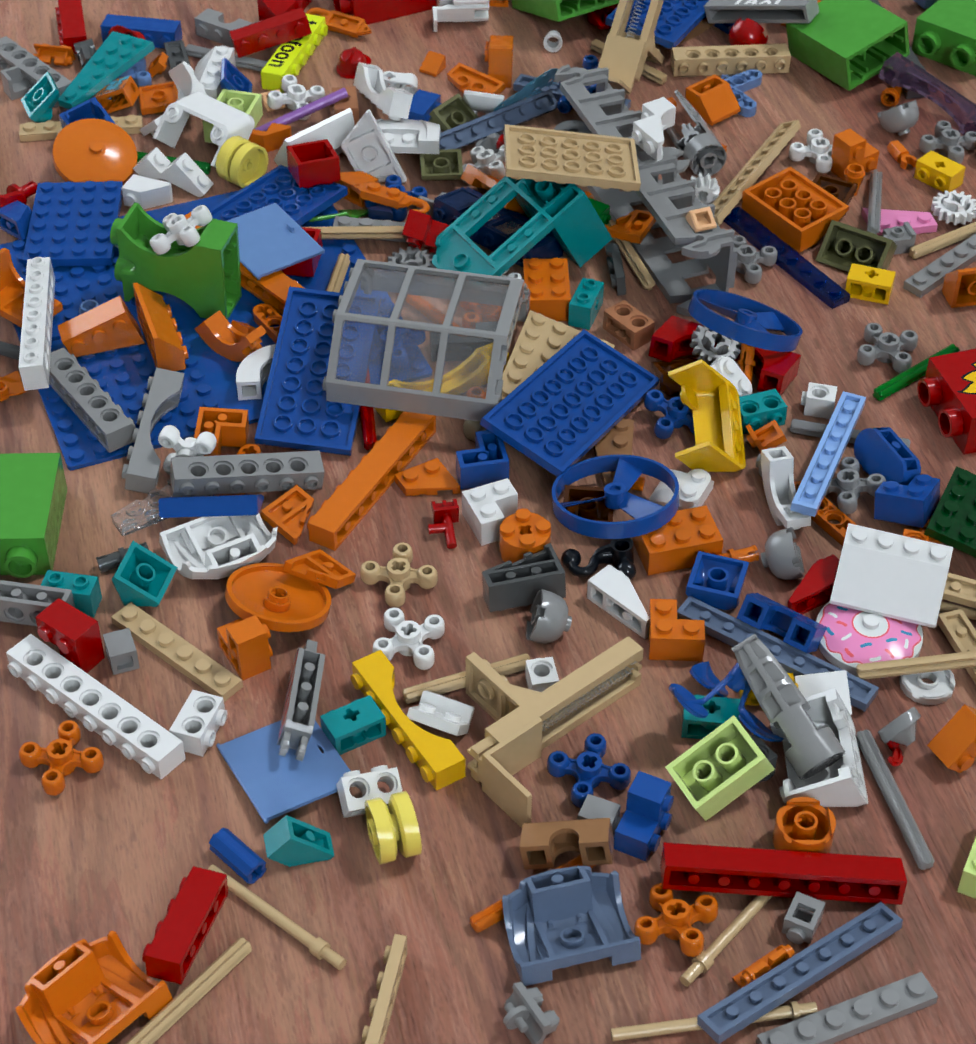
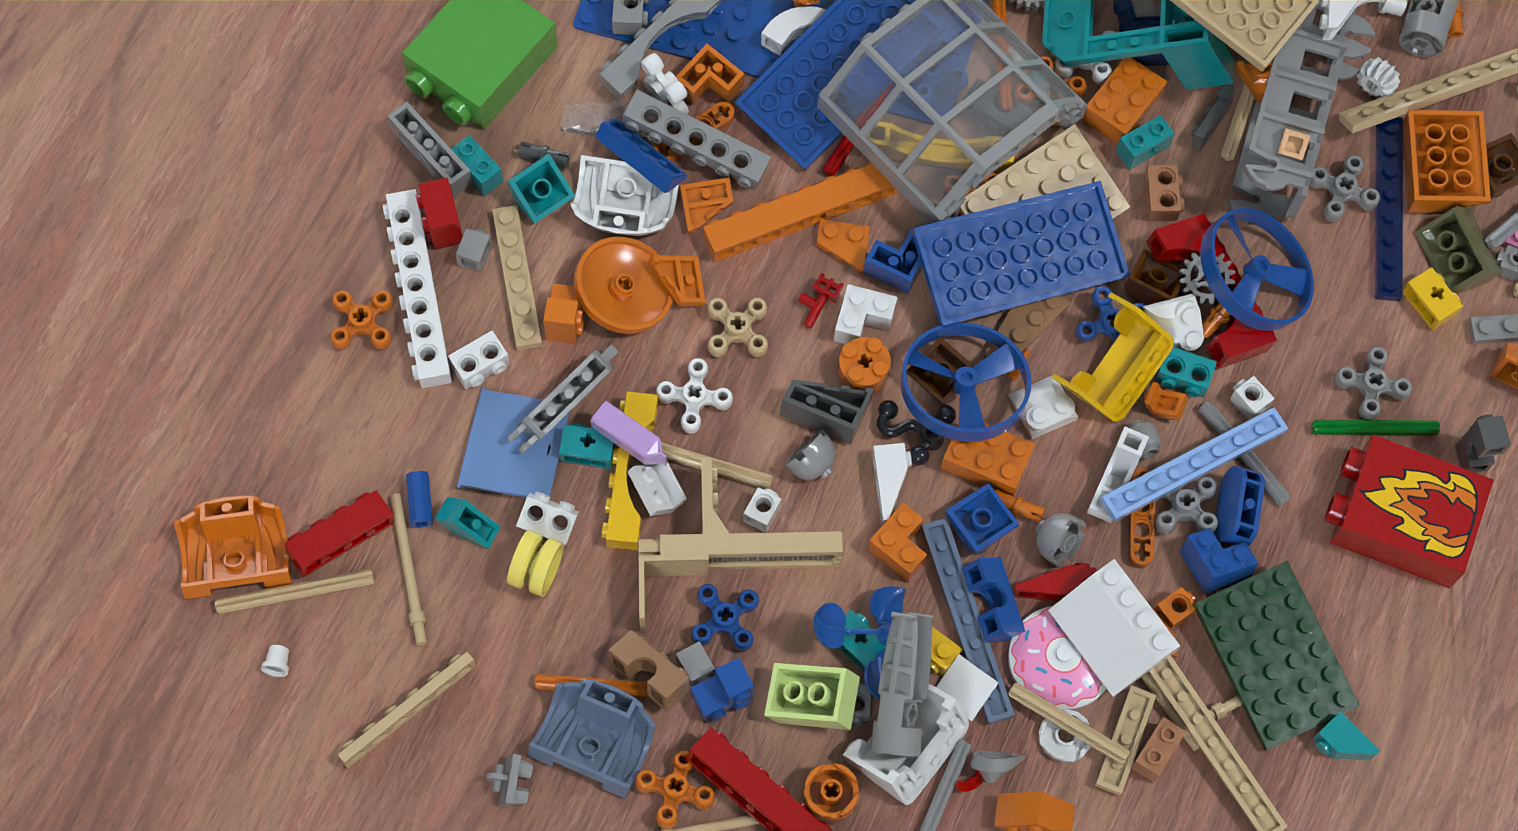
camera: 35 degrees right, 25 degrees up
(388, 683) = (628, 434): none -> lavender piece

